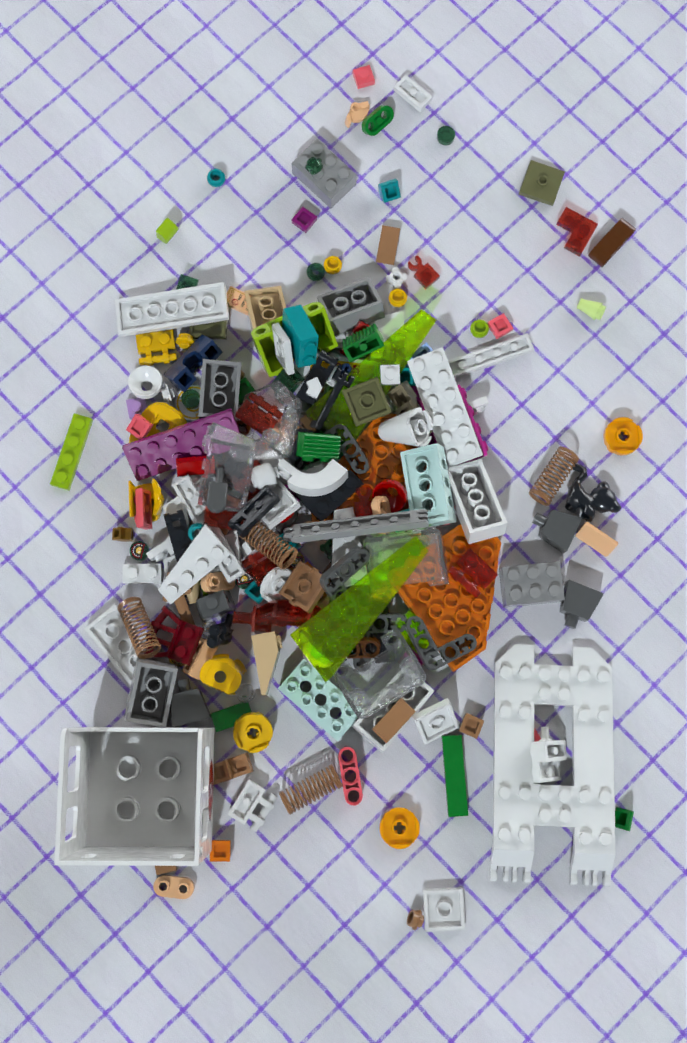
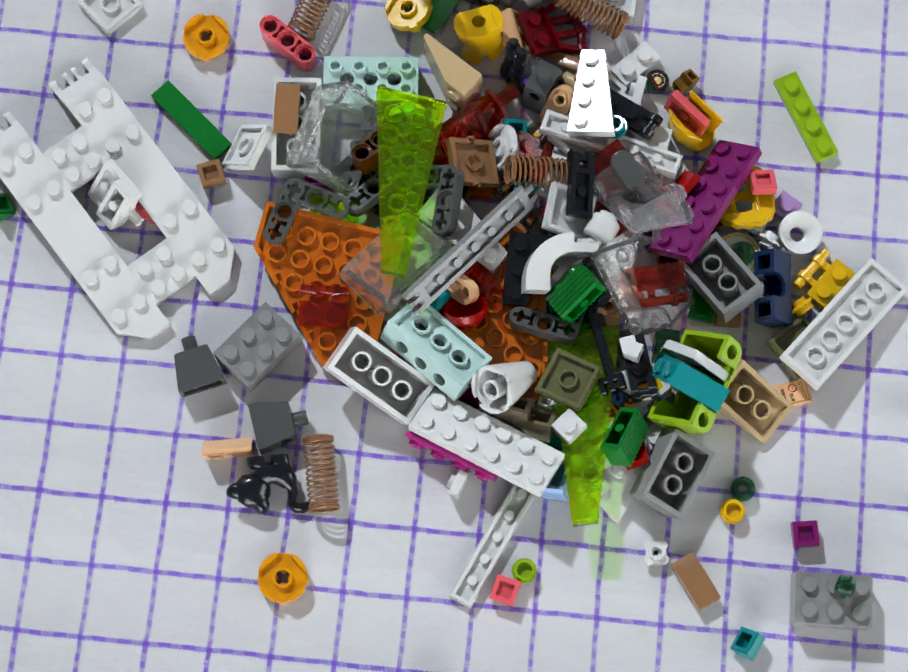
camera: 145 degrees right, 5 degrees down
(186, 282) = (855, 364): clear green plate -> none
(397, 297) = (635, 532): yellow plate -> none
(424, 274) = (629, 581): clear red plate -> none

